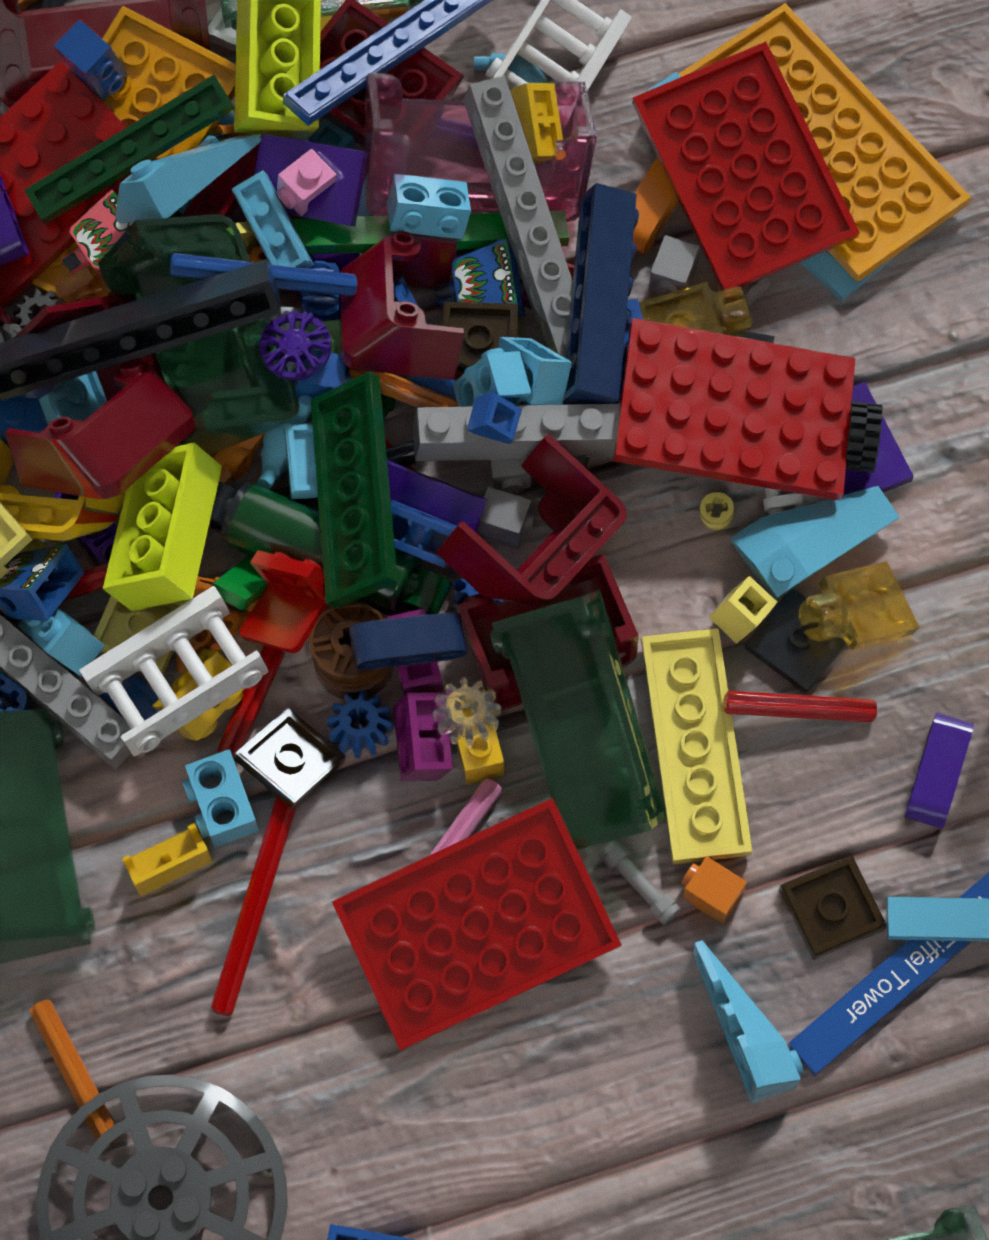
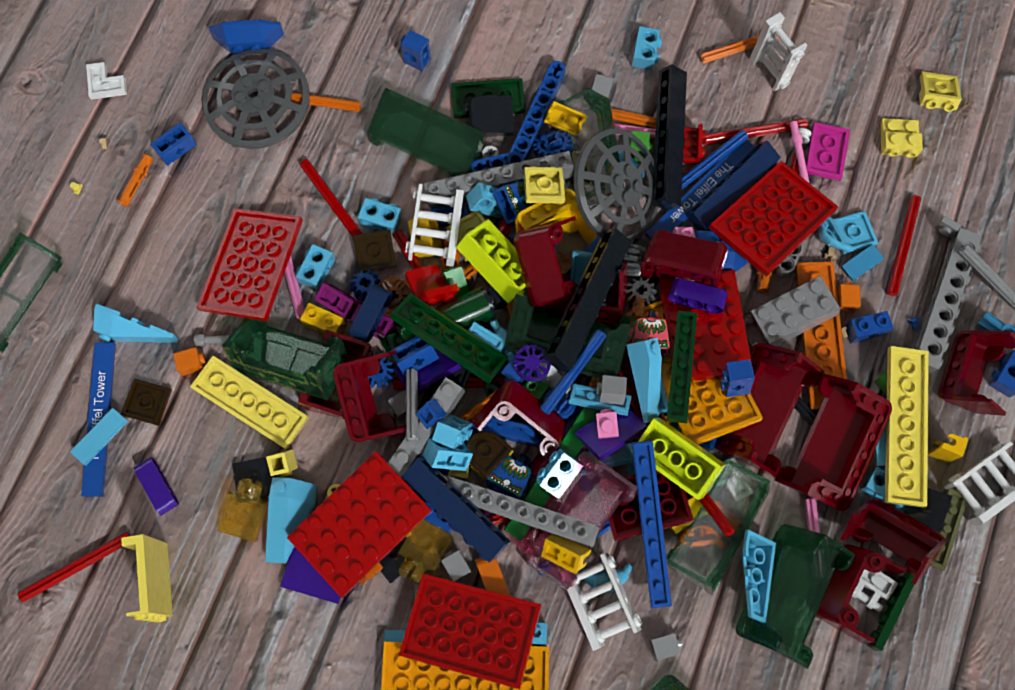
camera: 125 degrees right, 5 degrees up
(167, 860) = (374, 181): yellow hinge -> none
(246, 207) = (612, 390): none -> light grey brick
(391, 817) = (319, 268): none -> medium azure brick
(481, 707) = (325, 307): clear gear -> none
(501, 466) = (411, 404): none -> light grey axle
(800, 706) = (226, 453): red axle -> none
(863, 436) = (306, 572): black tyre -> none

